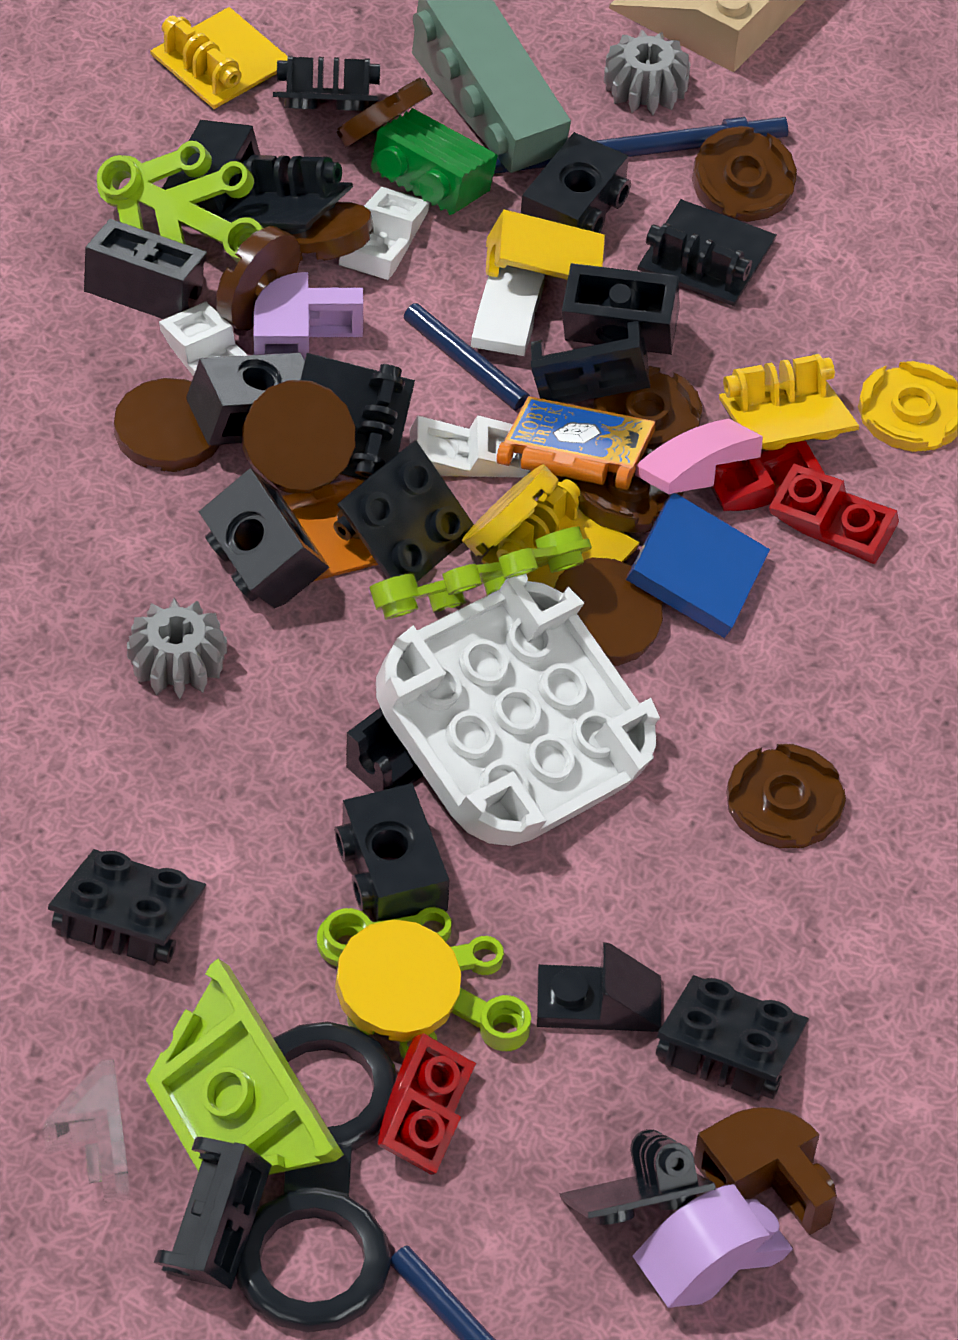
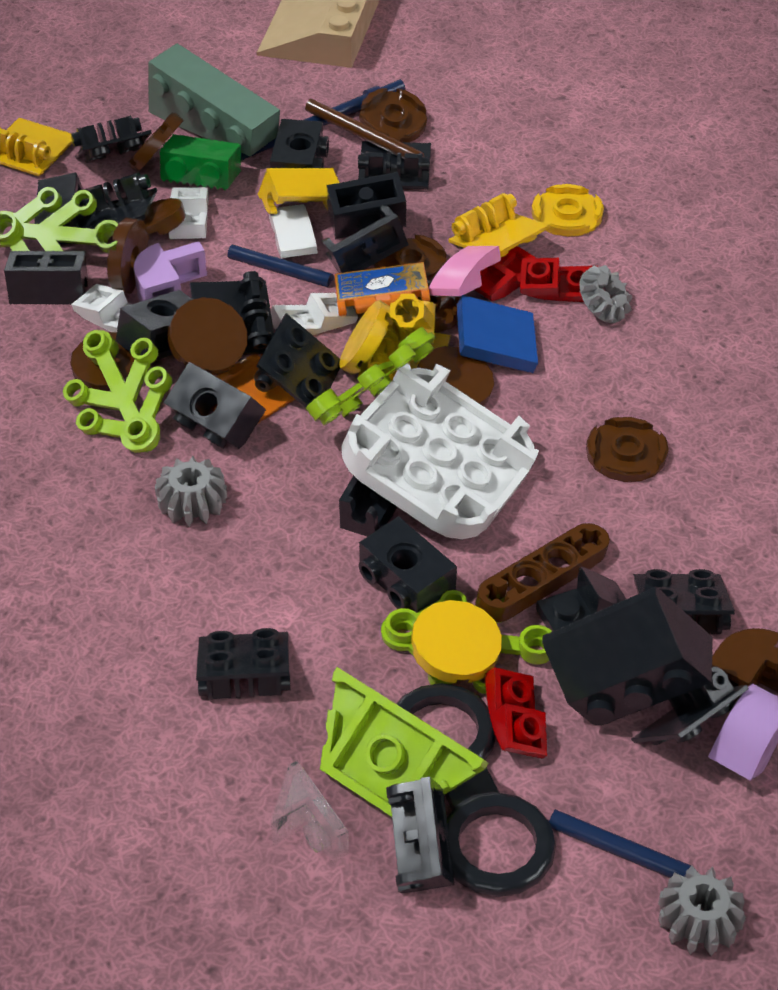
camera: 20 degrees left, 5 degrees down
(156, 538) = (102, 350): none -> lime plant
(564, 919) = (538, 567): none -> reddish brown beam
(581, 504) = (411, 314): none -> yellow piece
(584, 1089) = (629, 657): none -> black slope
(647, 71) = (302, 78): light grey gear -> none
(683, 184) = (358, 128): none -> reddish brown bar
(866, 566) = (599, 301): none -> light grey gear

